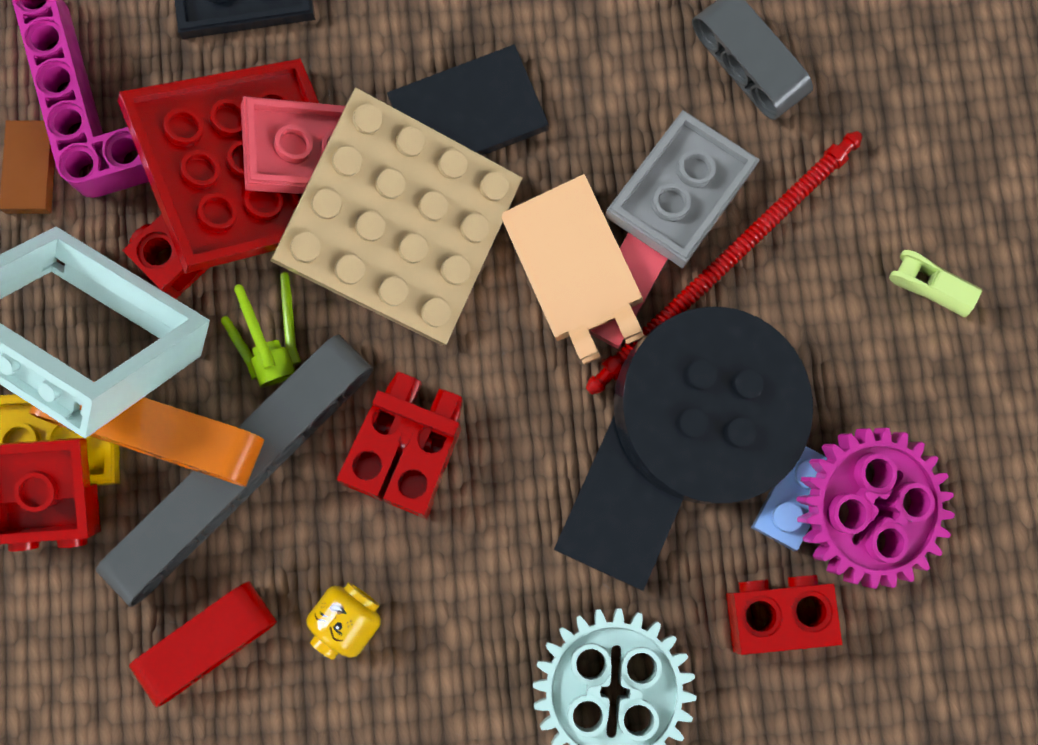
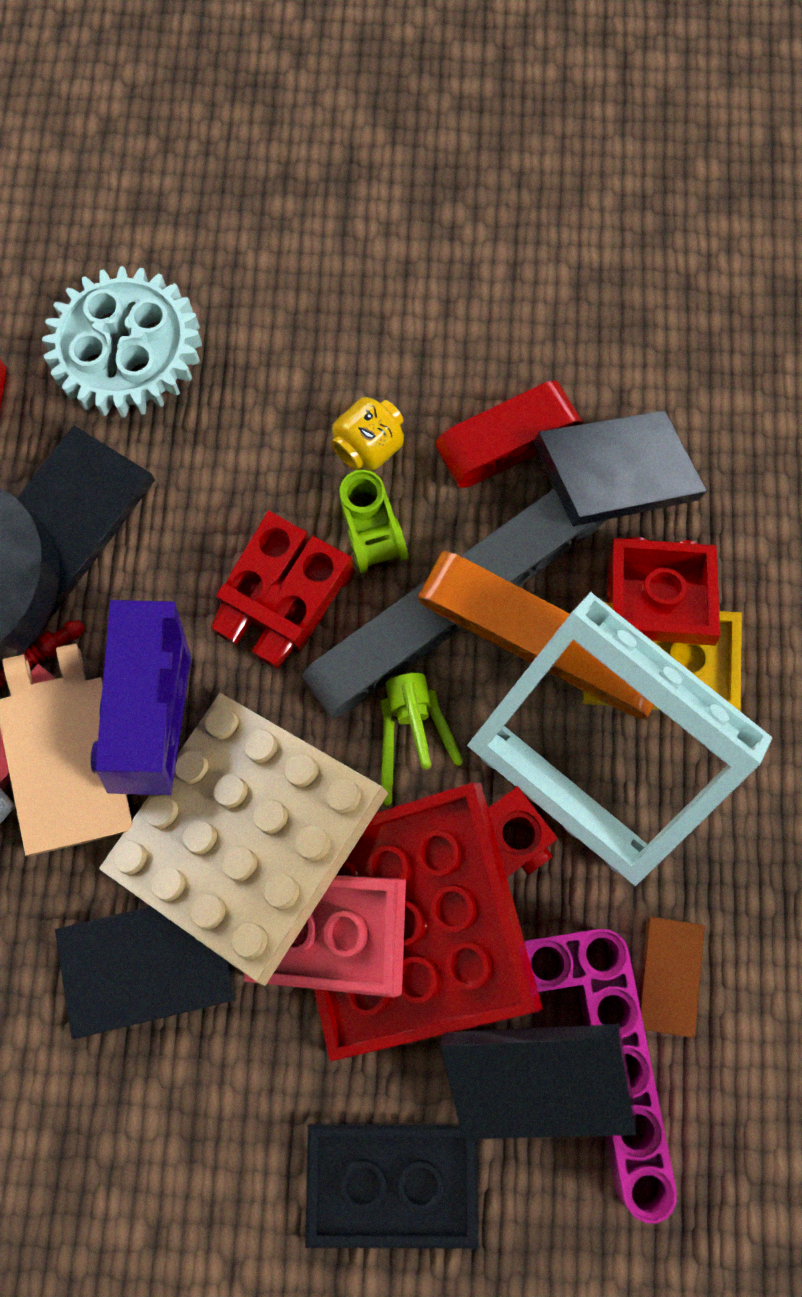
camera: 170 degrees left, 5 degrees down
(87, 617) = (618, 467): none -> tile
(118, 53) = (540, 1082): none -> black tile
(324, 519) = (371, 529): none -> lime piece
(507, 311) = (141, 698): none -> dark purple wedge

